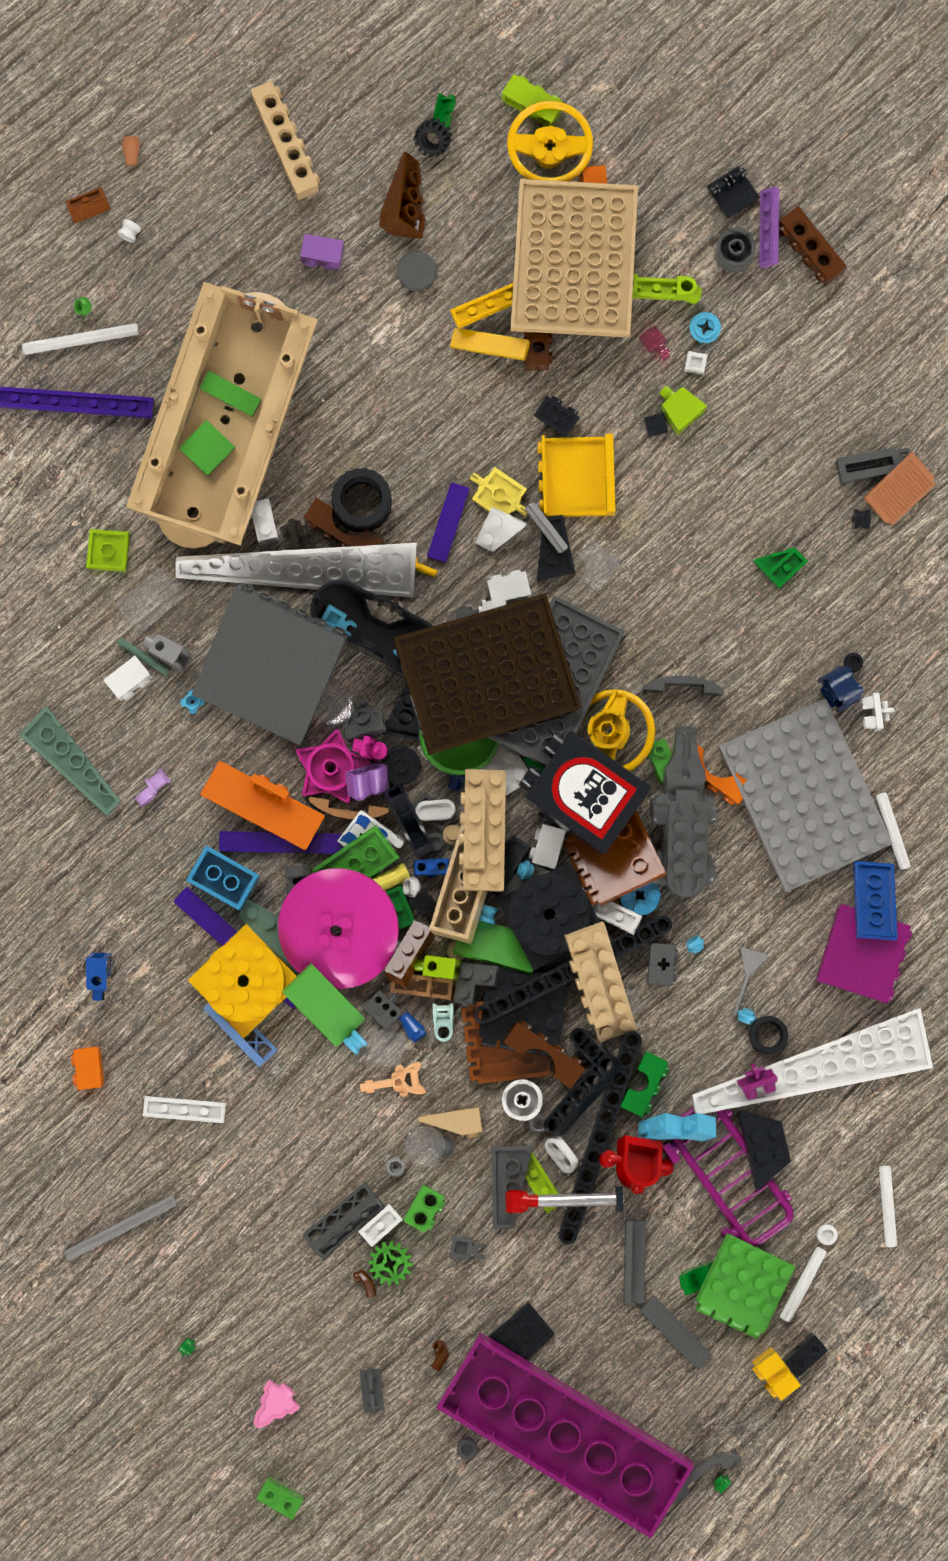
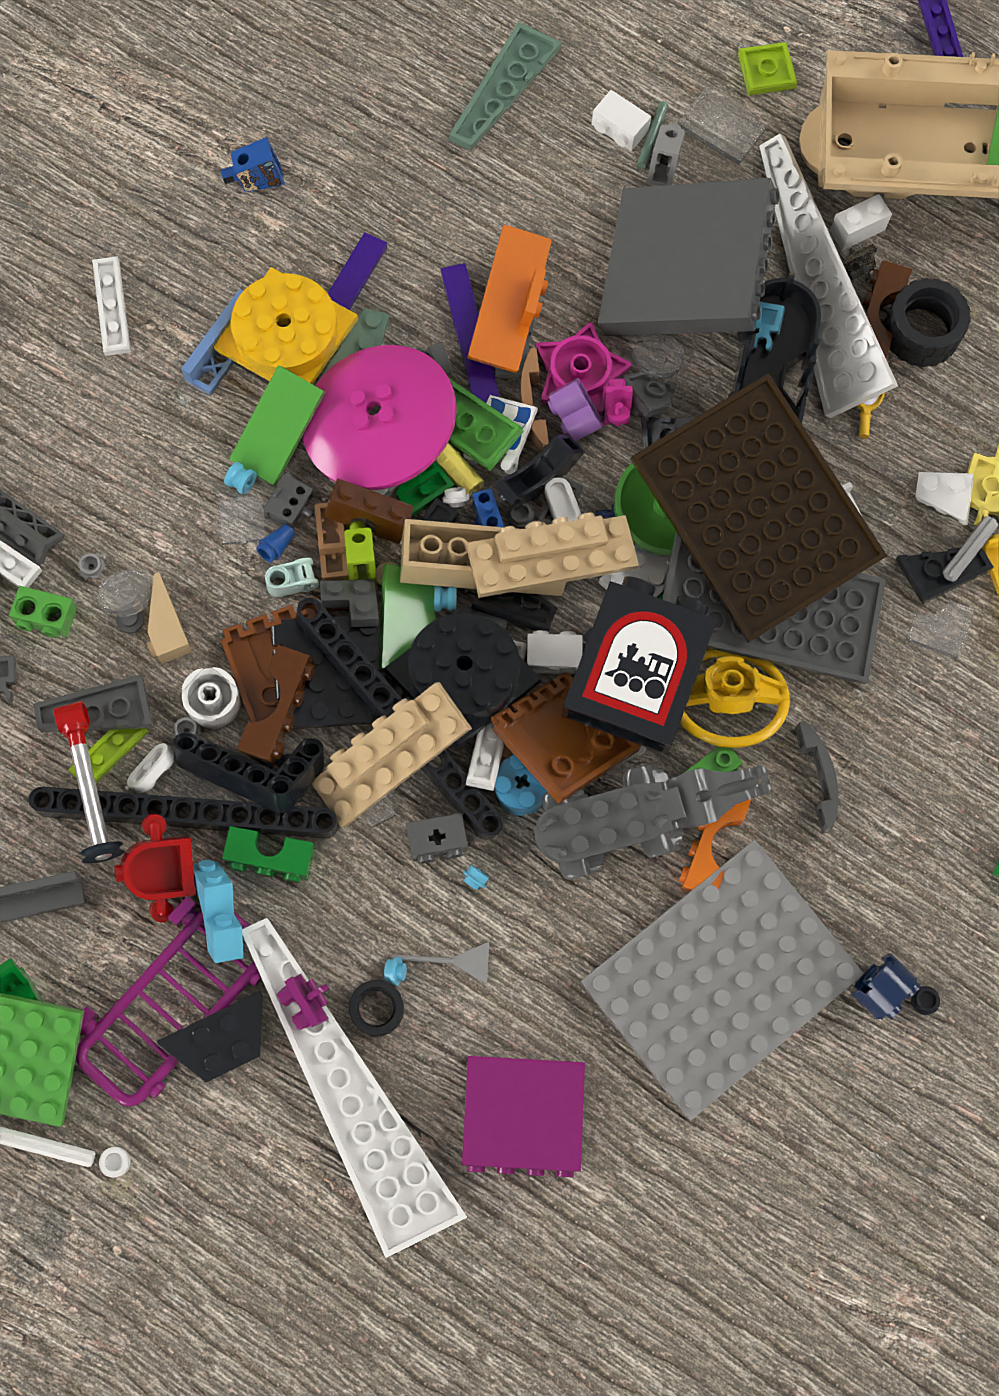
camera: 75 degrees right, 10 degrees down
(88, 1068) = (137, 186): orange brick -> none
(154, 784) = (488, 174): lavender connector -> none
(186, 702) = (612, 191): medium azure plate -> none
(207, 448) = (928, 132): bright green tile -> none
(223, 878) = (407, 276): dark azure brick -> none
(398, 1081) = (202, 544): light nougat piece -> none
(402, 765) = (607, 452): black tile -> none
(448, 522) = (933, 435): dark purple tile -> none
(510, 587) = (880, 521): white brick -> none
(525, 870) = (516, 629): medium azure plate -> none
(875, 721) = (878, 1040): white hips -> none
(875, 900) = (601, 1110): blue tile -> none
(888, 1206) = (172, 1242): white axle -> none
(891, 825) = (707, 1116): white axle -> none

